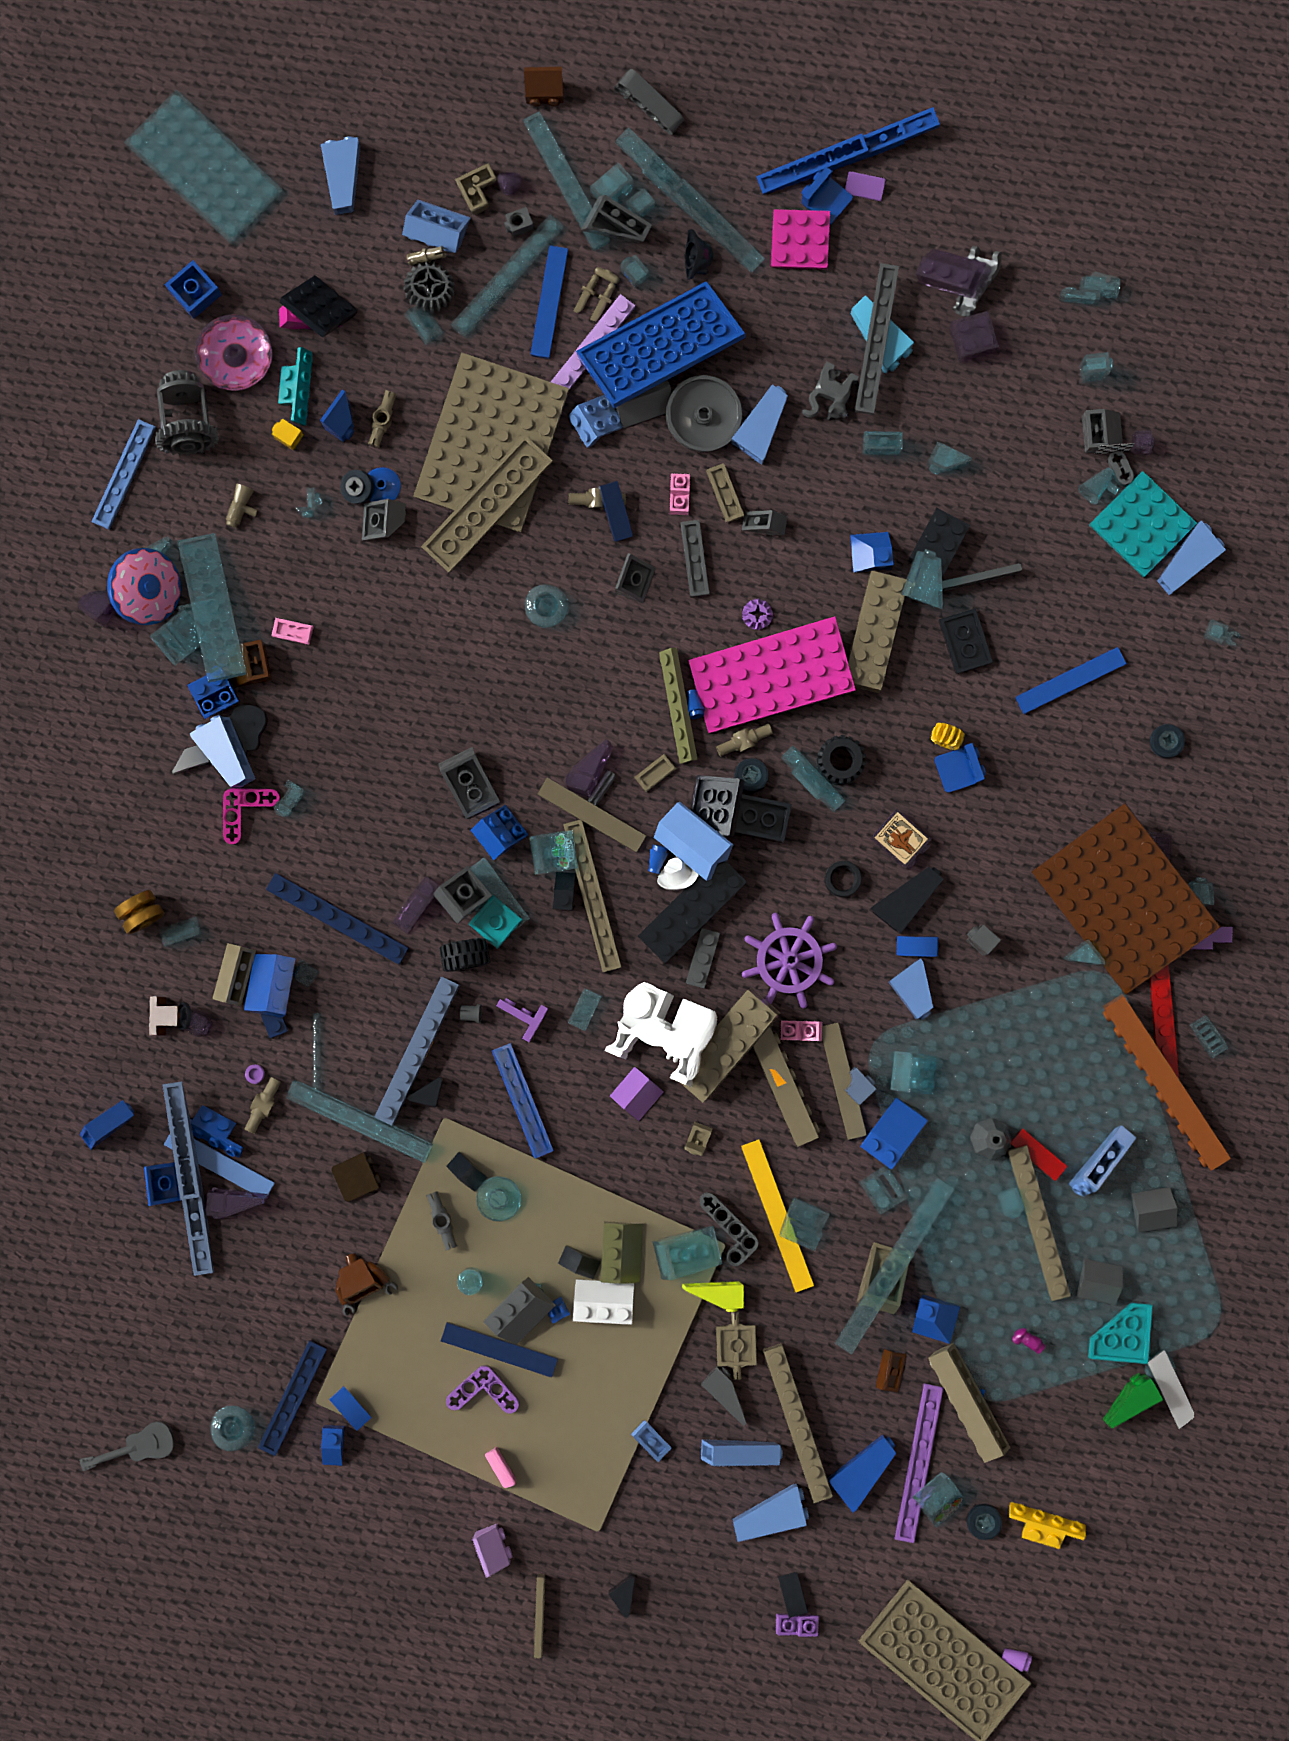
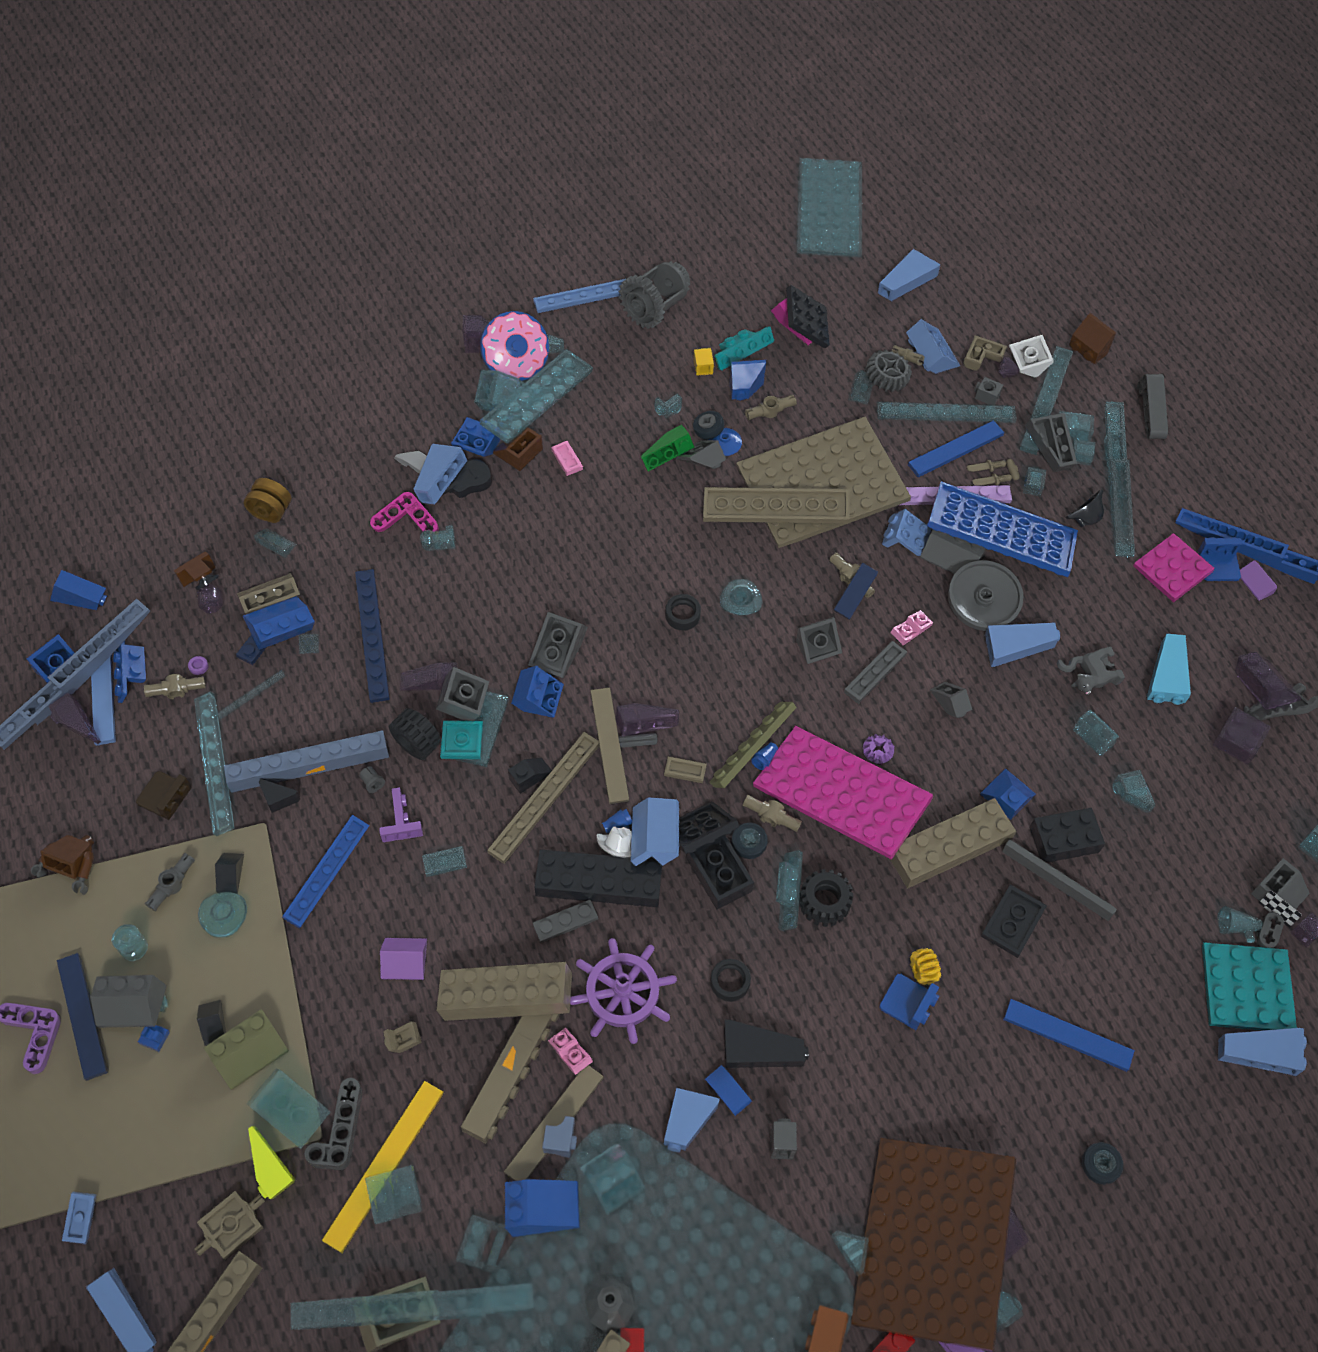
camera: 45 degrees right, 25 degrees down
(193, 289) = (745, 247): blue brick -> none
(233, 352) = (727, 295): clear purple dish -> none
(238, 506) = (626, 368): dark tan piece -> none
(353, 539) = (667, 447): none -> green slope
(505, 663) = (683, 599): none -> black tyre
(516, 153) = (1032, 355): none -> white slope
(553, 852) = (554, 740): clear light blue slope -> none
(603, 1302) = (188, 1069): white slope -> none
(684, 1039) = (483, 928): white animal -> none
(722, 1389) = (175, 1248): dark grey slope -> none
(725, 493) = (944, 656): dark tan plate -> none
(876, 339) = (1163, 664): dark grey plate -> none
(901, 839) = (806, 1000): brick -> none
(925, 579) = (1028, 840): clear light blue slope -> none
(1218, 632) = (1234, 1129): clear light blue plate -> none

